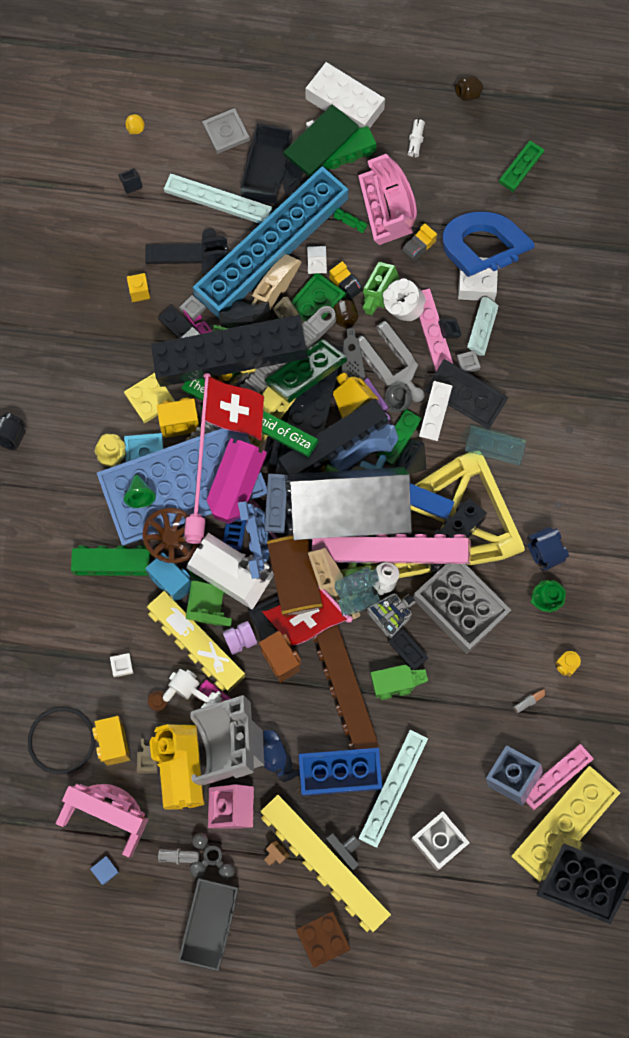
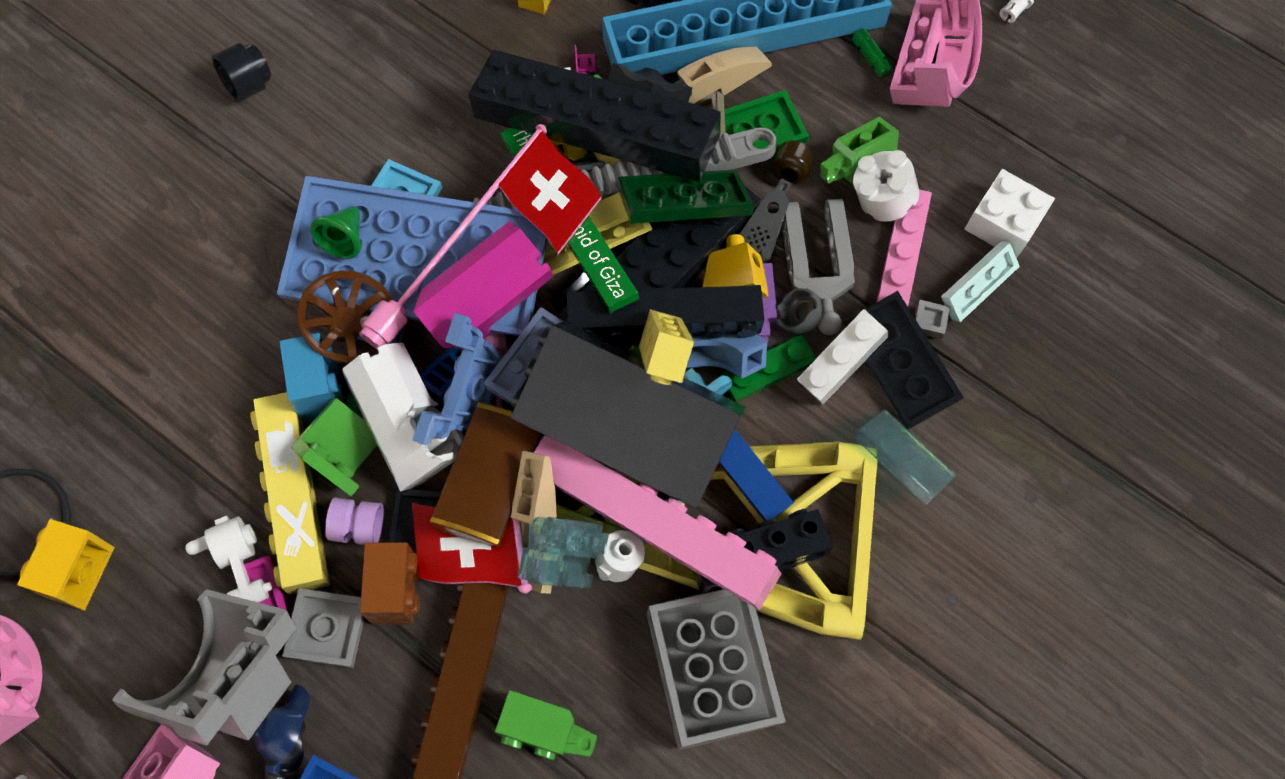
camera: 25 degrees right, 5 degrees down
(110, 450) = (356, 163): light yellow hair -> none
(110, 562) = (246, 306): green brick -> none
(121, 665) = (166, 463): white plate -> none
(145, 397) = (456, 133): light yellow plate -> none
(145, 763) = (103, 625): dark tan plate -> none
(156, 701) = (175, 544): reddish brown plate -> none
(174, 322) = (554, 51): black plate -> none
(177, 417) = (468, 167): yellow brick -> none
(178, 758) = (140, 655): yellow brick -> none
(192, 307) = (590, 51): light grey tile -> none
(262, 694) = (325, 628): none -> light grey plate
(317, 259) = (794, 74): white brick -> none
(345, 281) = (817, 120): leg -> none
(351, 460) = (665, 347): none -> light yellow brick
(391, 613) = (600, 618): torso -> none
(408, 650) = (591, 689): black plate -> none
(413, 457) = (770, 408): black slope -> none
(420, 242) = (953, 127): leg -> none
(449, 328) = (930, 259): black tile -> none
(489, 222) = (1011, 180): blue piece -> none
(521, 166) = (1154, 103): green plate -> none
(547, 548) = (899, 657): dark blue brick -> none
(548, 596) = (859, 734): green hair -> none

